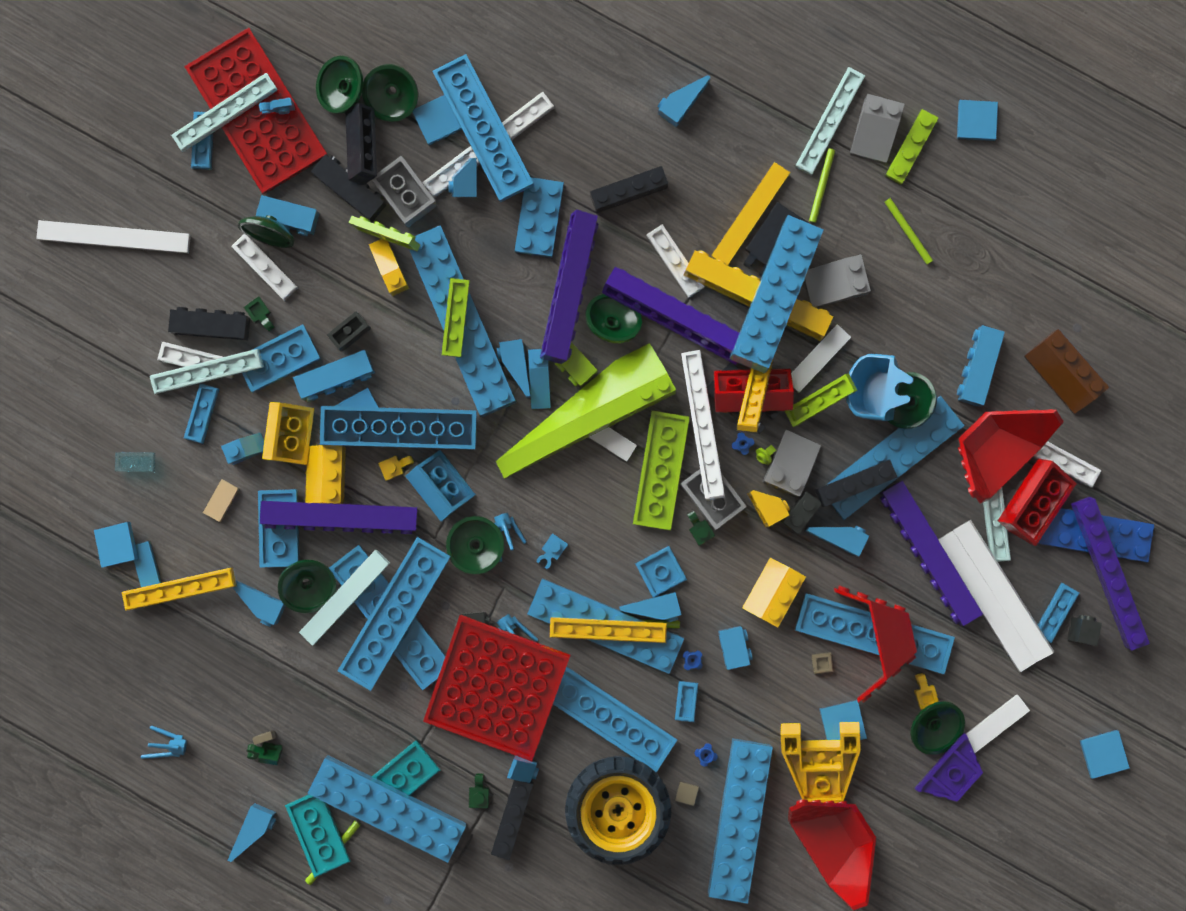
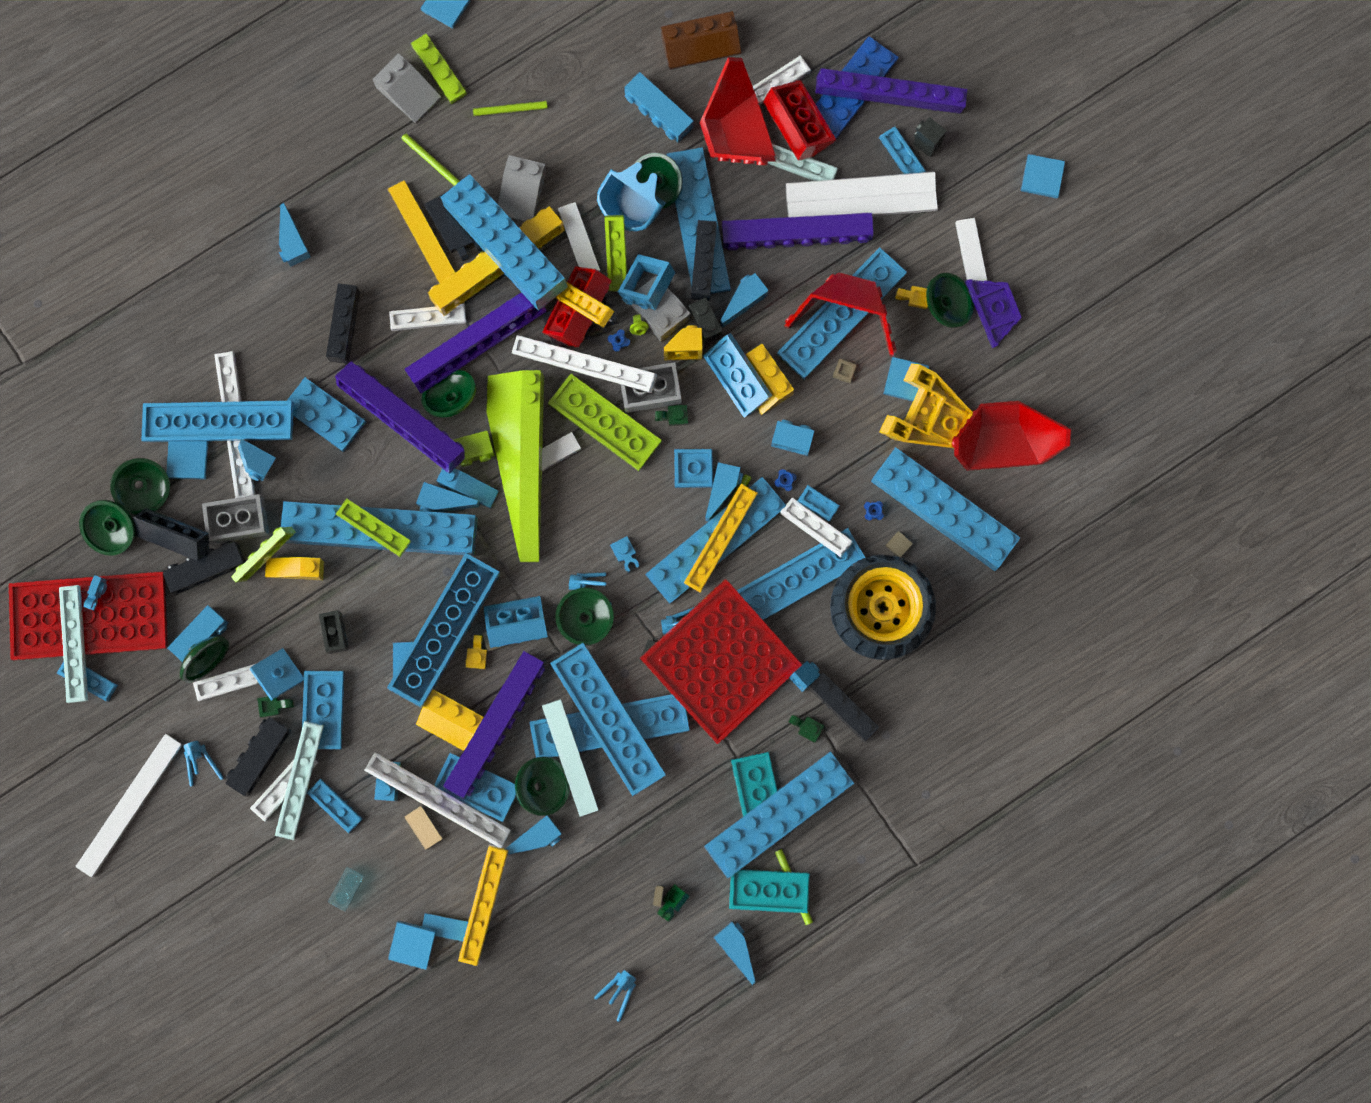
camera: 70 degrees left, 5 degrees down
(186, 266) = (192, 752): none -> dark azure plant
(248, 501) = (437, 800): none -> white tile
(288, 302) = (277, 674): none -> dark azure plate
(288, 433) = (395, 734): yellow slope -> none
(334, 375) = (366, 666): dark azure brick -> none
(663, 711) = (816, 527): none -> white tile
(765, 568) = (737, 375): none -> dark azure plate
(808, 456) = (643, 263): none -> dark azure window
(830, 121) = (378, 125): light aqua tile -> none

